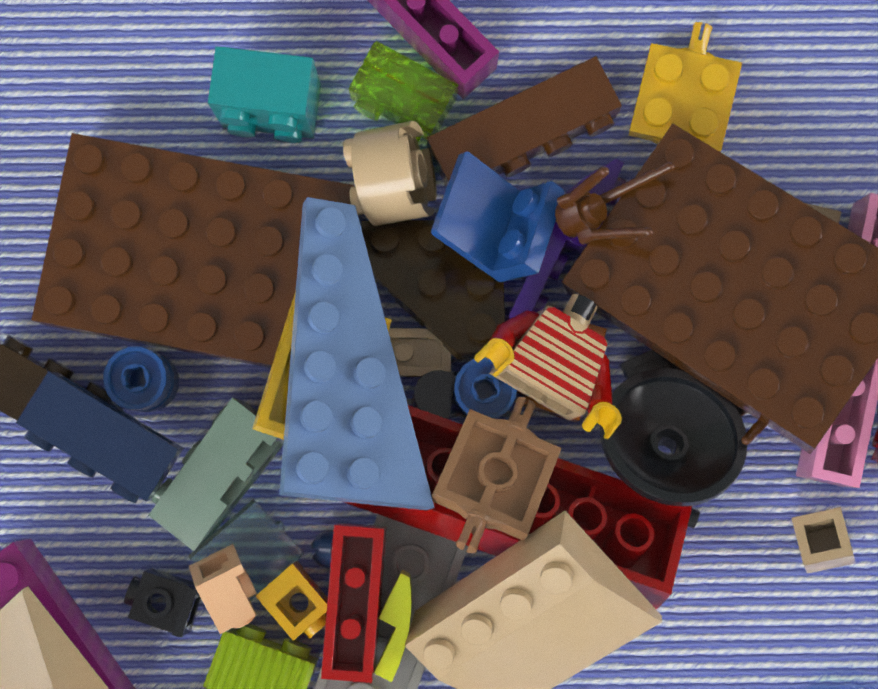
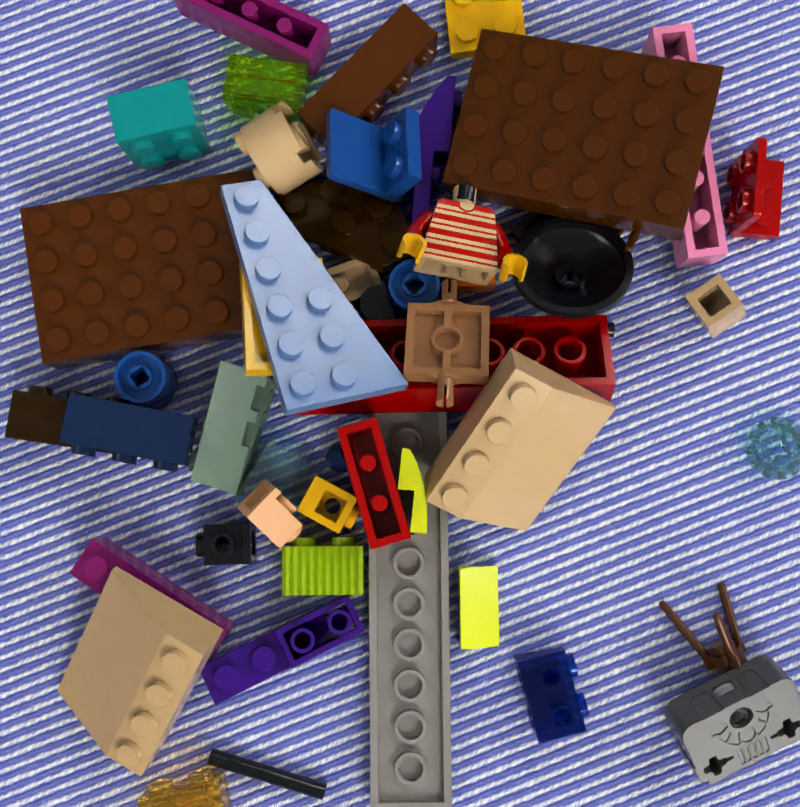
camera: 15 degrees left, 0 degrees up
(582, 212) = (438, 121): reddish brown plant -> none

